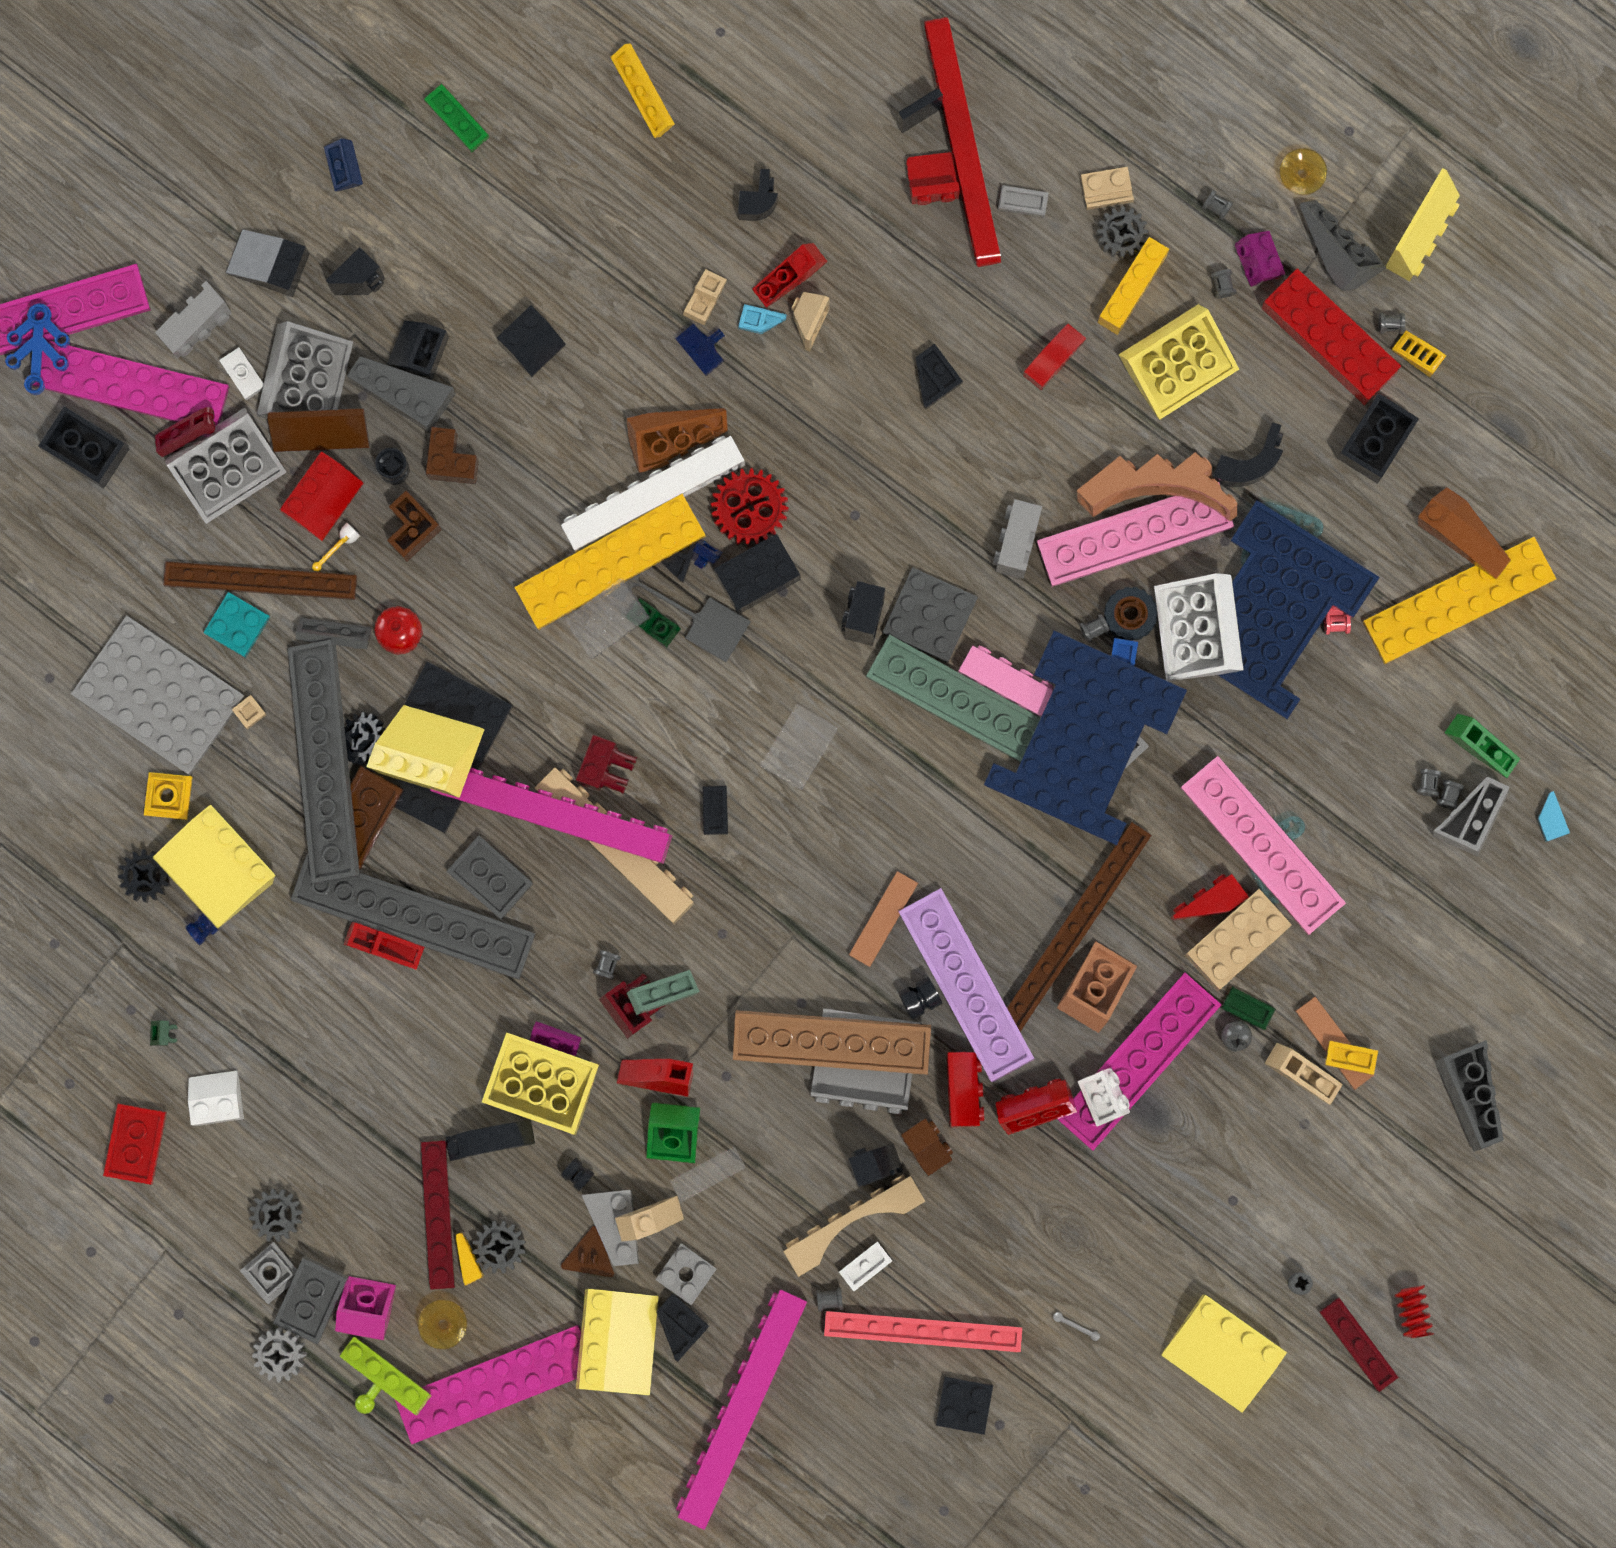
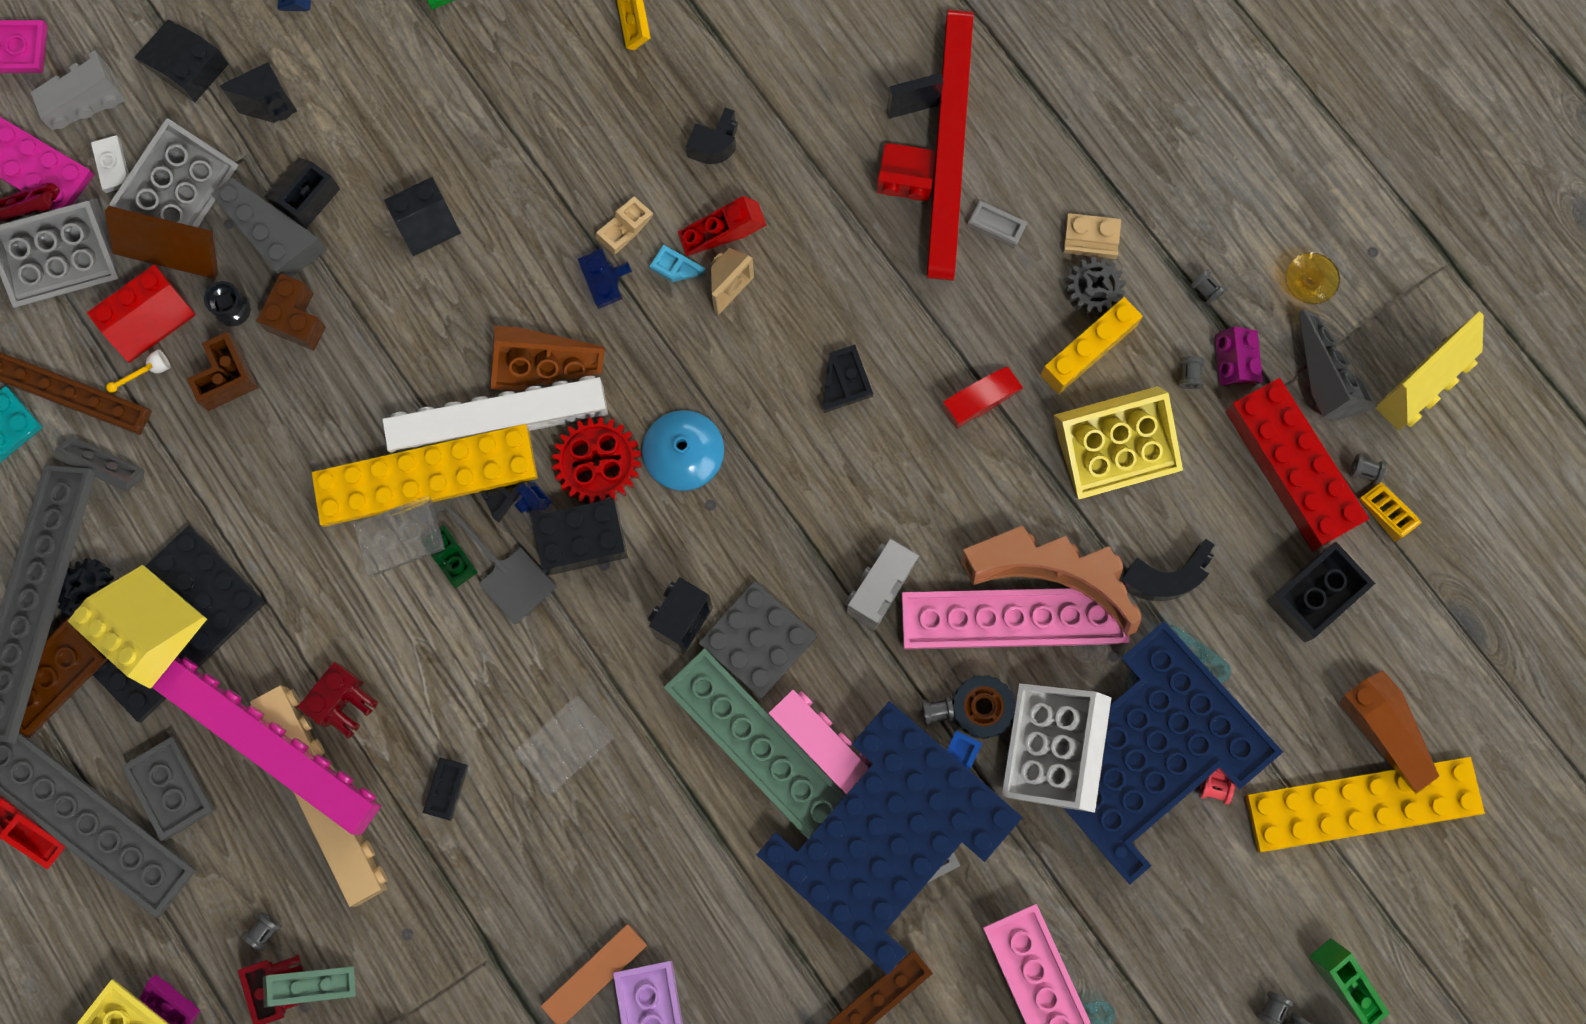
camera: 15 degrees right, 5 degrees down
(398, 630) = (171, 481): red cylinder -> none
(820, 492) = (687, 467): none -> dark azure dish

